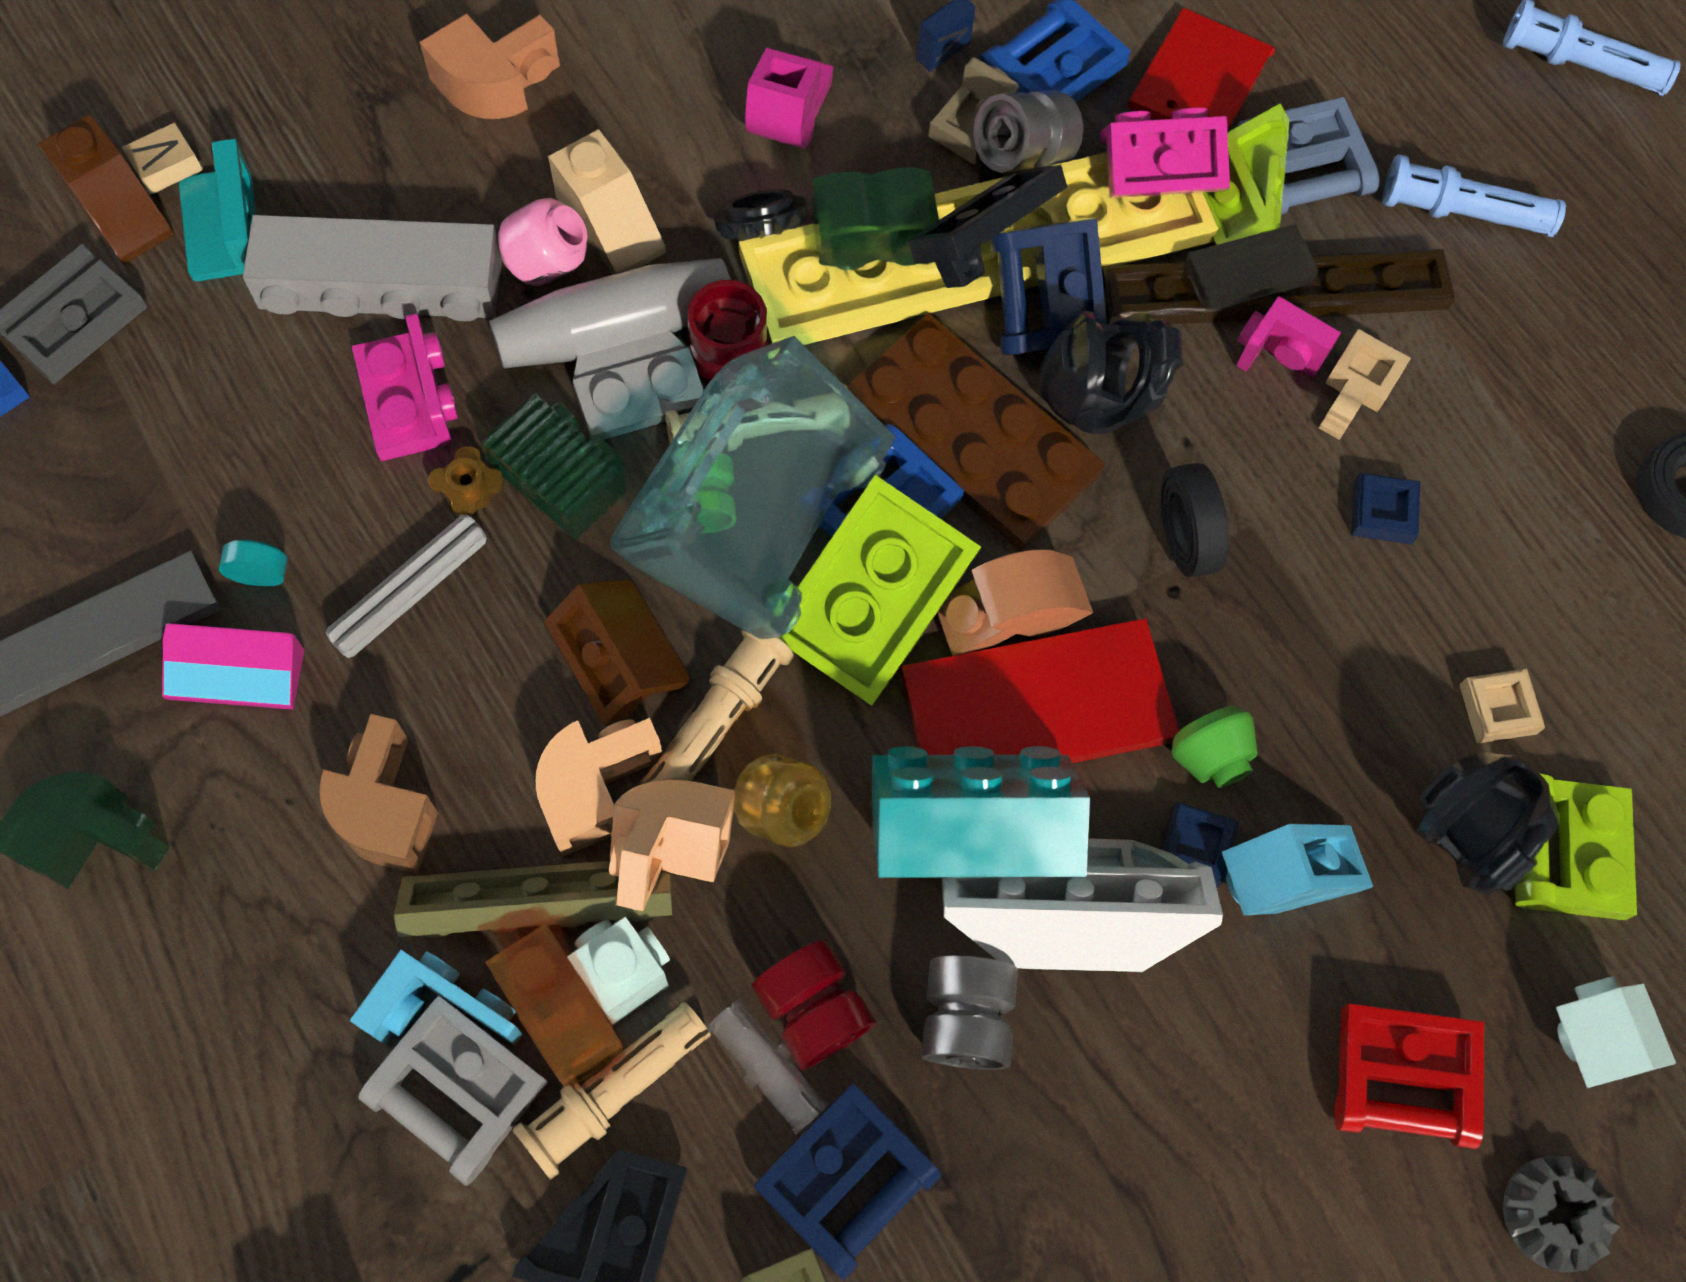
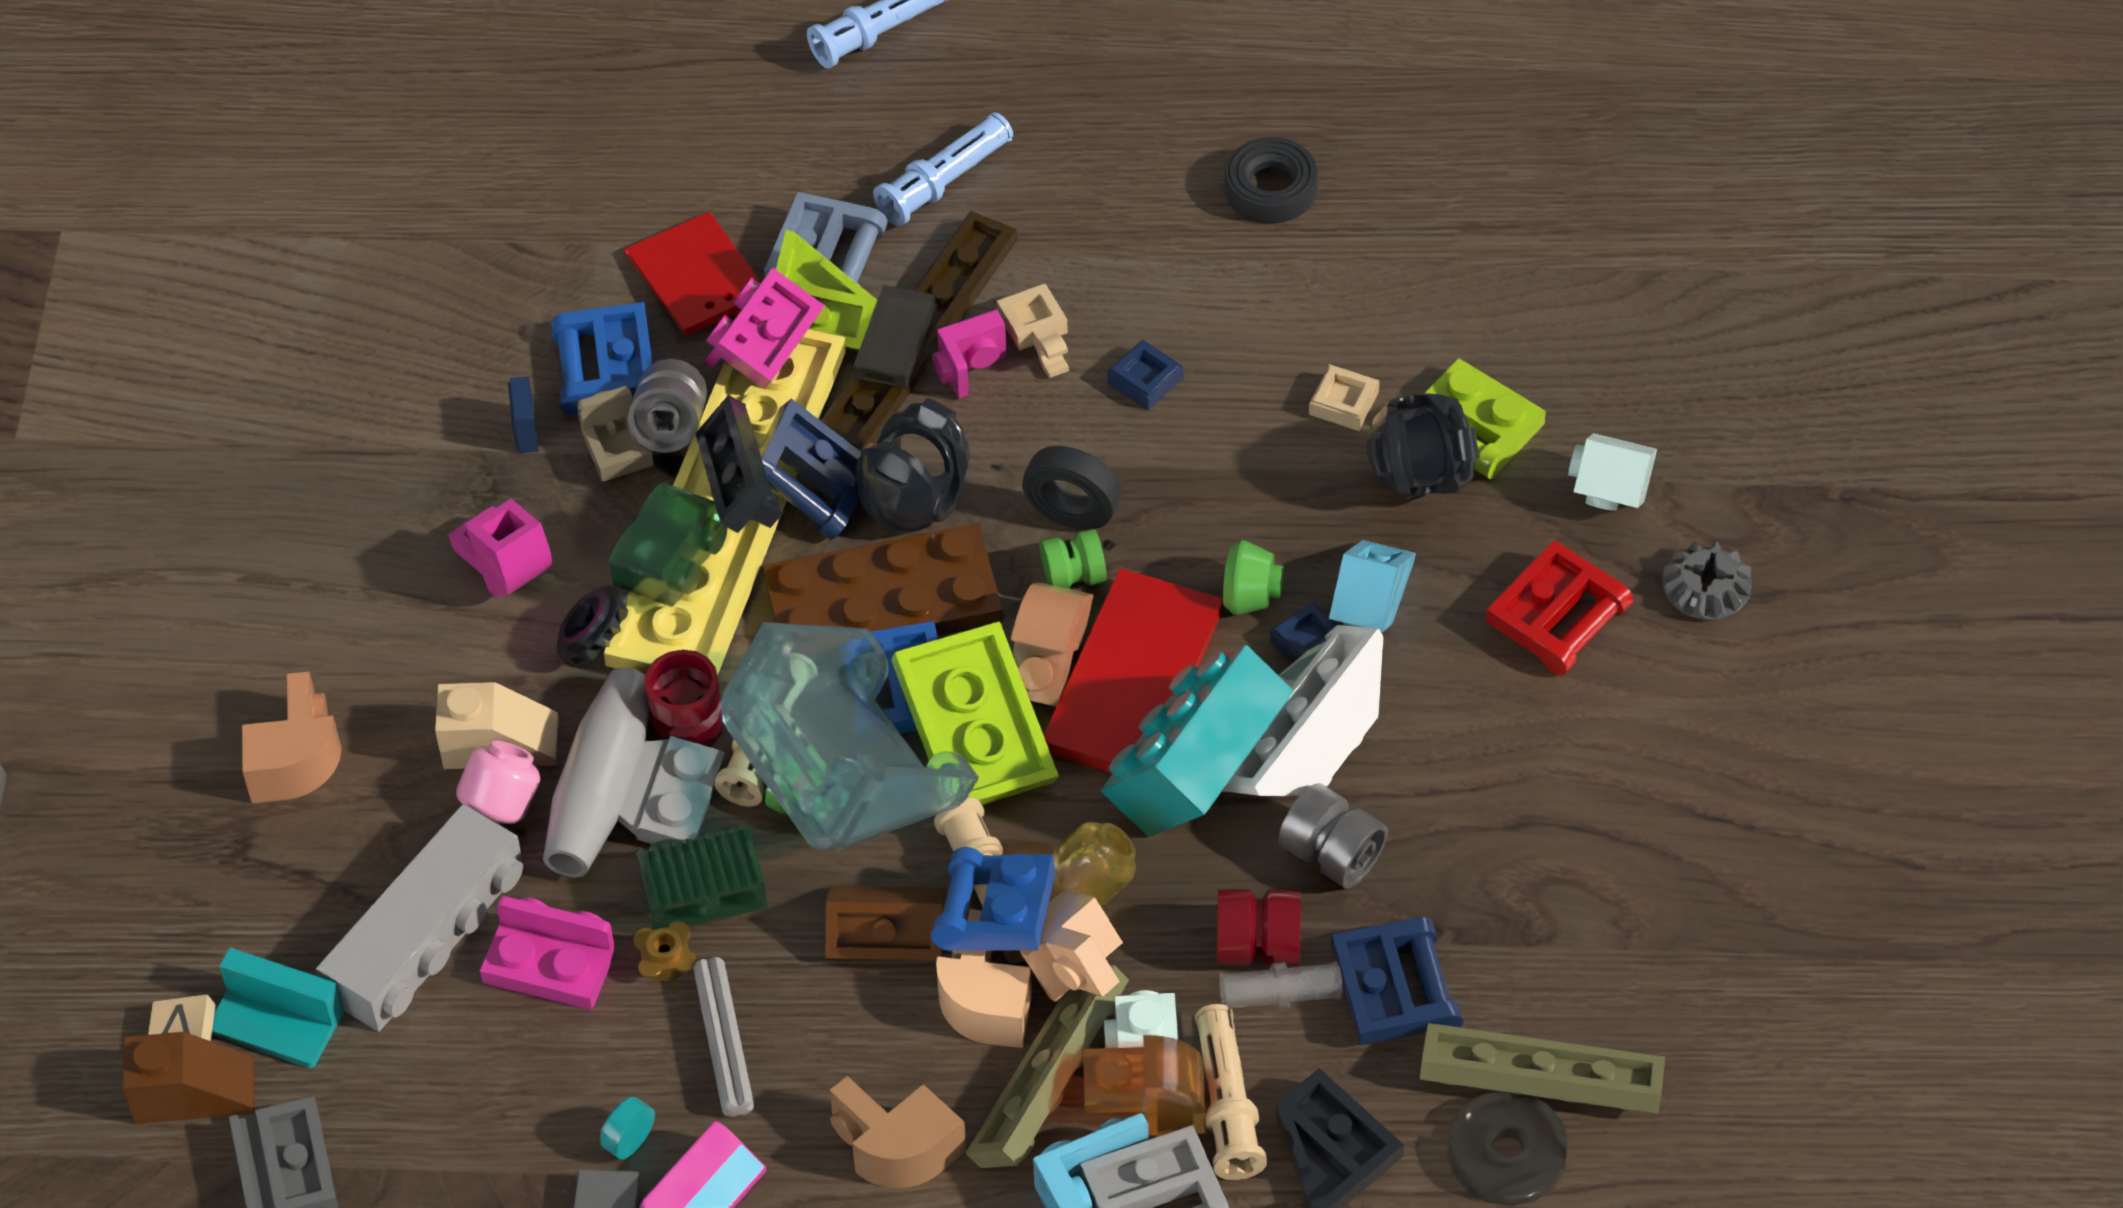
camera: 50 degrees left, 15 degrees down
(669, 754) = (1012, 906): none -> blue plate
(1121, 571) = (1073, 560): none -> bright green wheel

